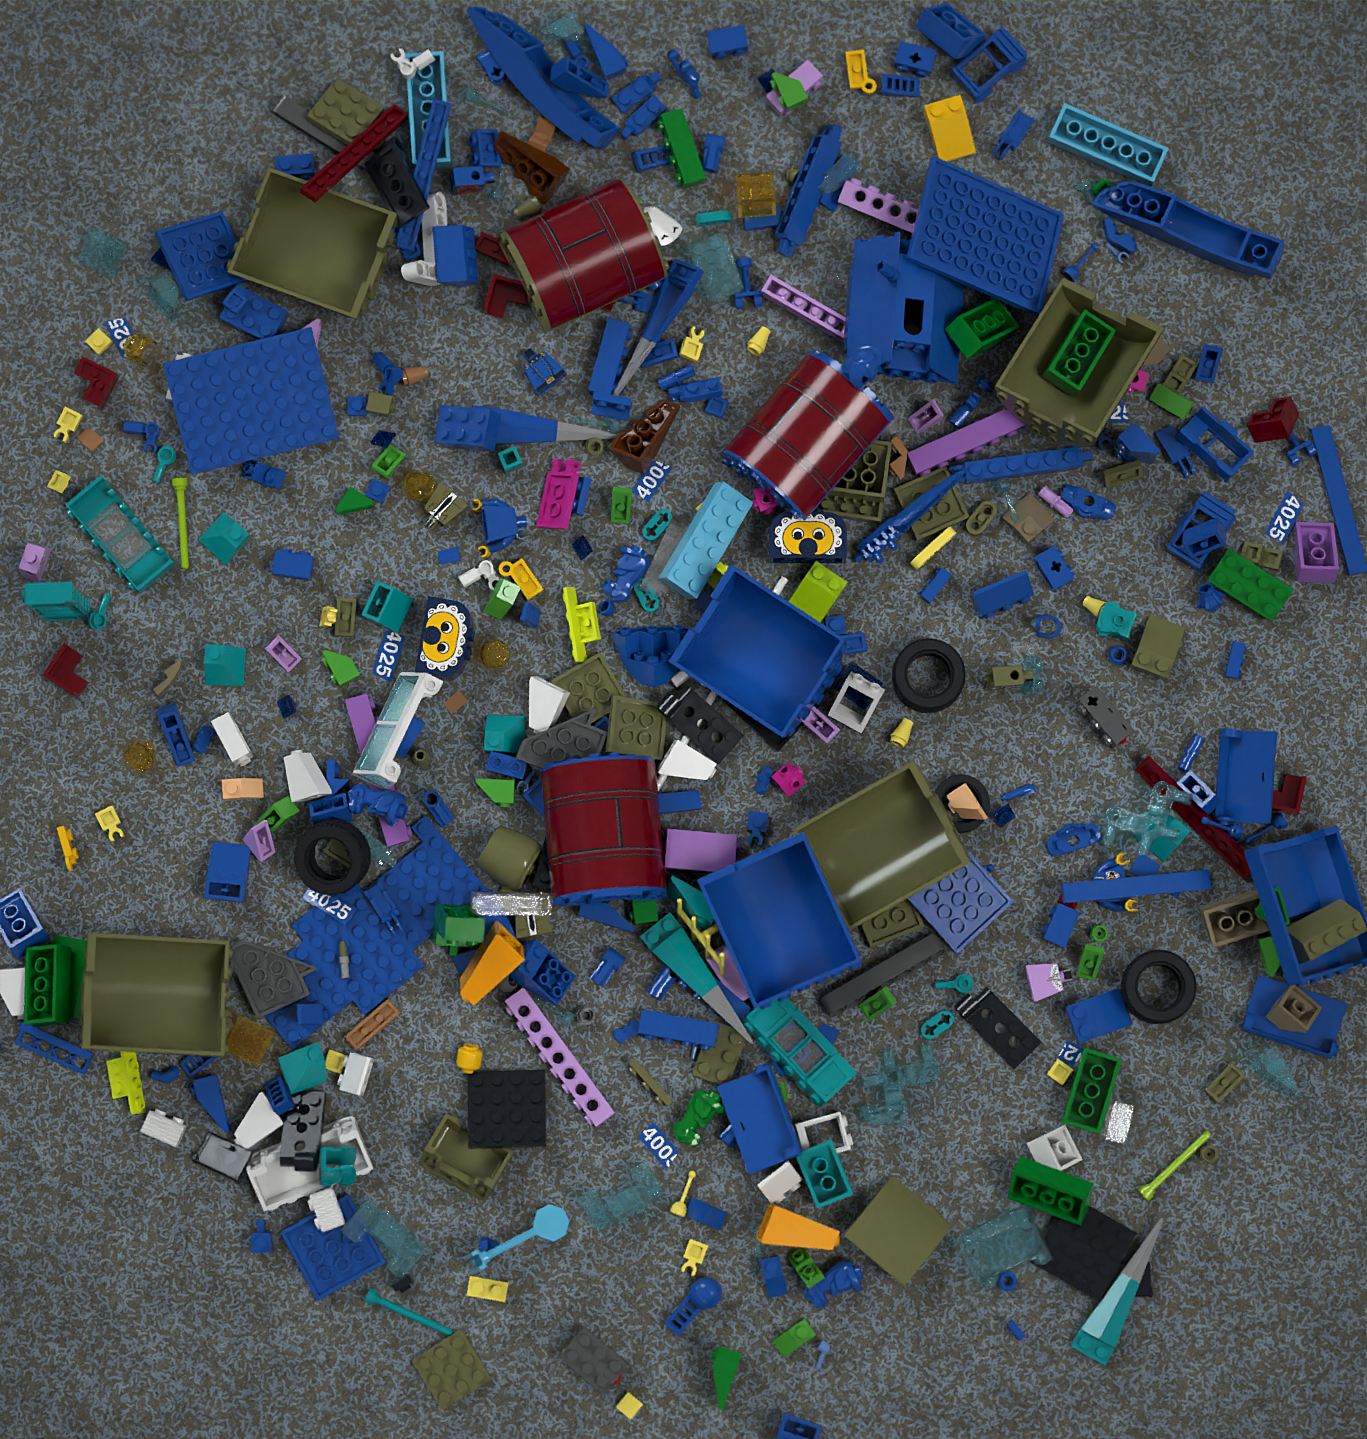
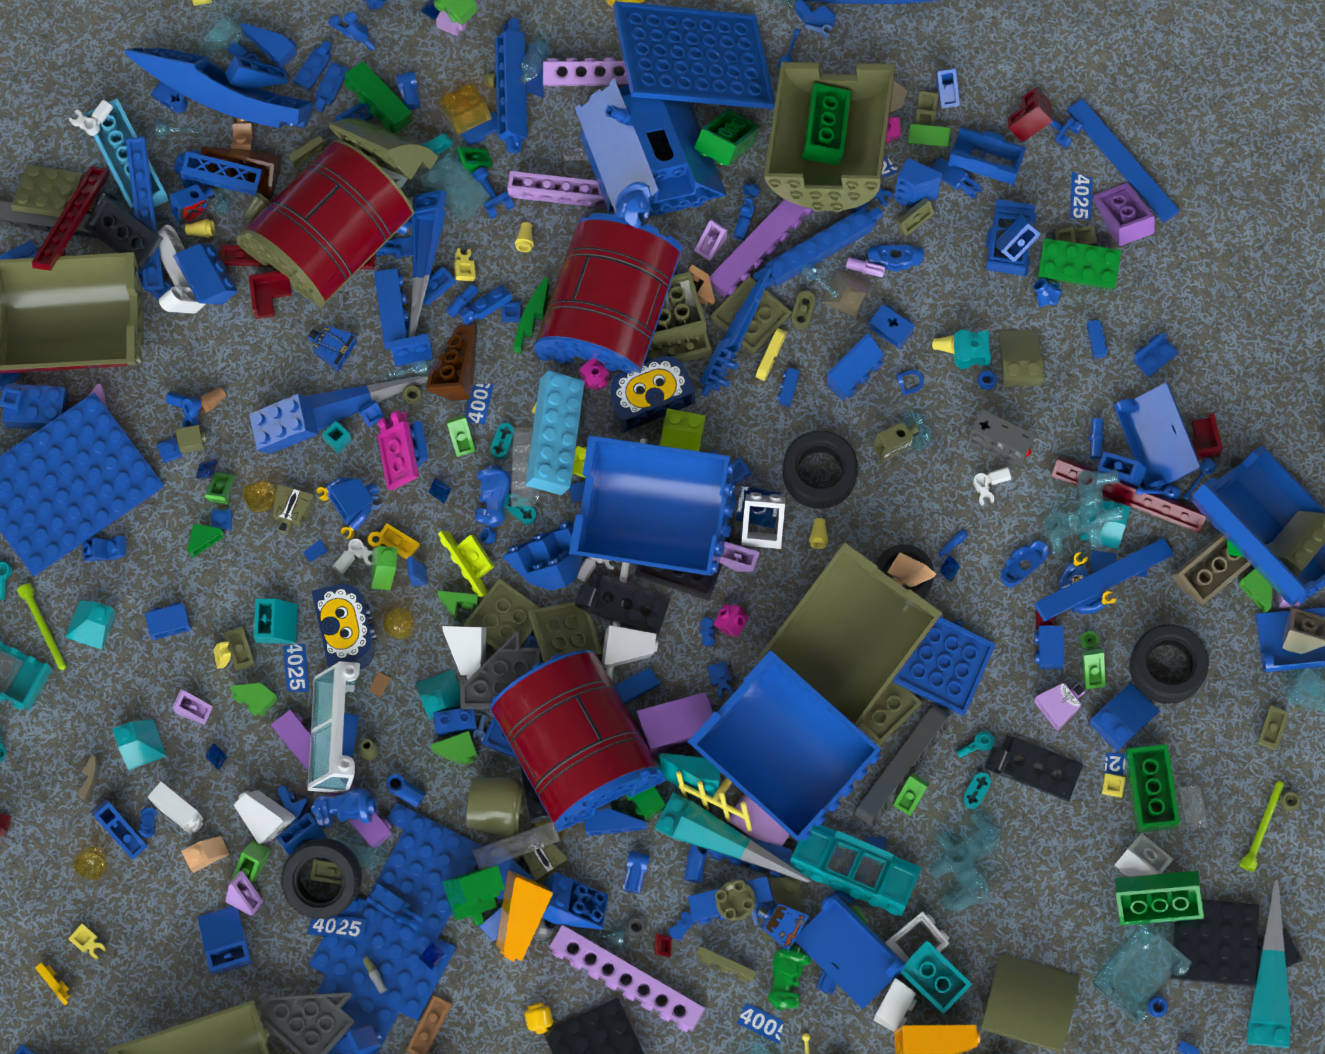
camera: 25 degrees left, 10 degrees down
(399, 965) = (431, 956): none -> clear blue slope
(469, 207) = (202, 228): none -> light yellow cone
(502, 170) = (217, 180): none -> blue fence
(550, 449) = (371, 413): none -> blue plate
(550, 654) = (453, 599): none -> bright green slope
(587, 174) = (306, 152): none -> olive plate
(603, 1042) = (662, 945): none -> dark red slope
(665, 203) = (385, 146): none -> olive slope
(680, 1033) = (735, 900): none -> olive dish
(713, 1069) = (781, 923): none -> blue torso
(737, 414) = (534, 310): none -> green slope
(745, 246) = (474, 158): none -> green slope
(1070, 747) = (982, 481): none -> white bar
(1281, 698) = (1154, 355): none -> blue bracket

